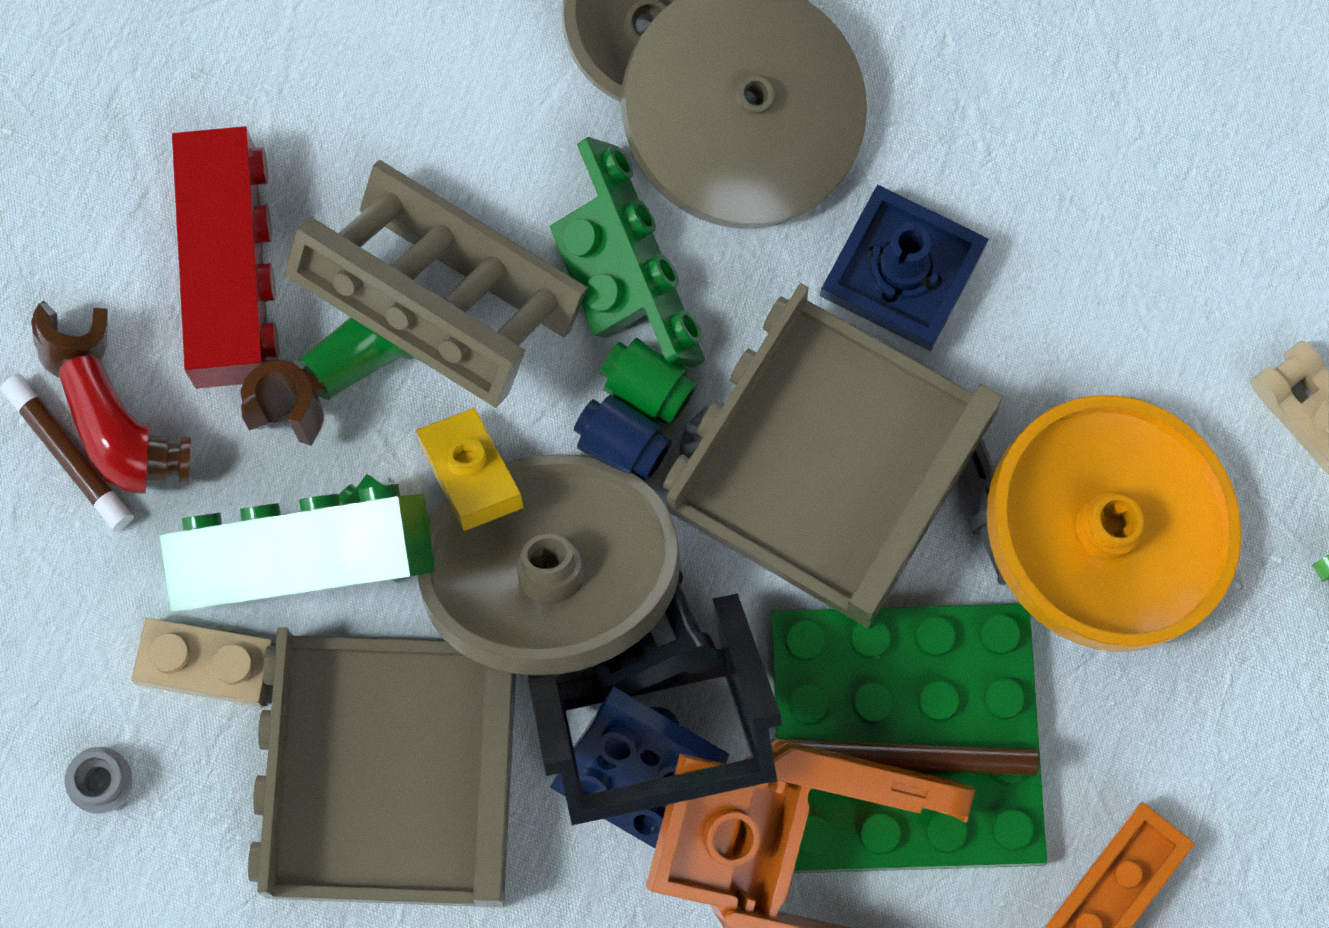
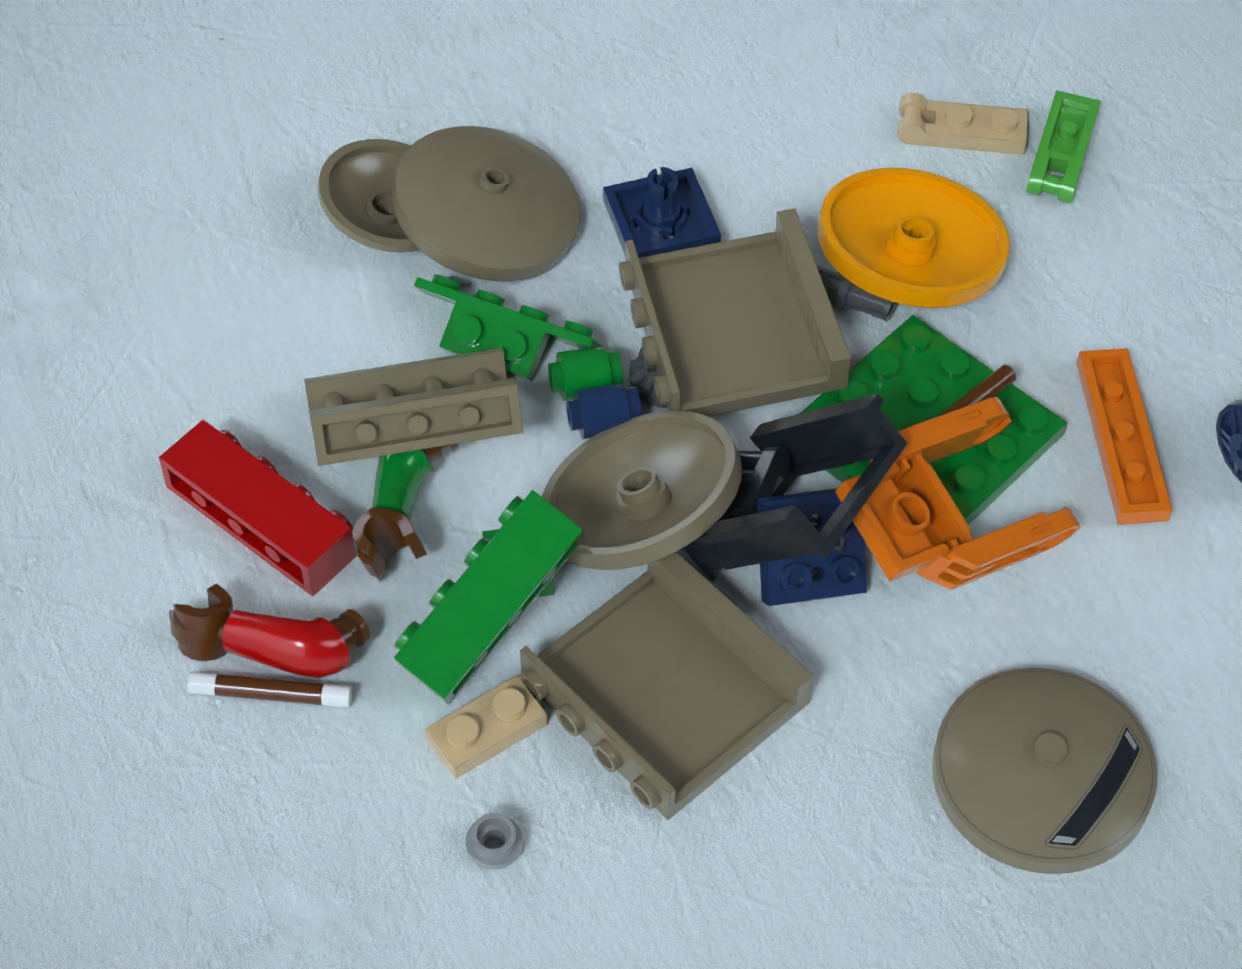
camera: 45 degrees left, 20 degrees down
(469, 469) = (556, 484): yellow plate -> none

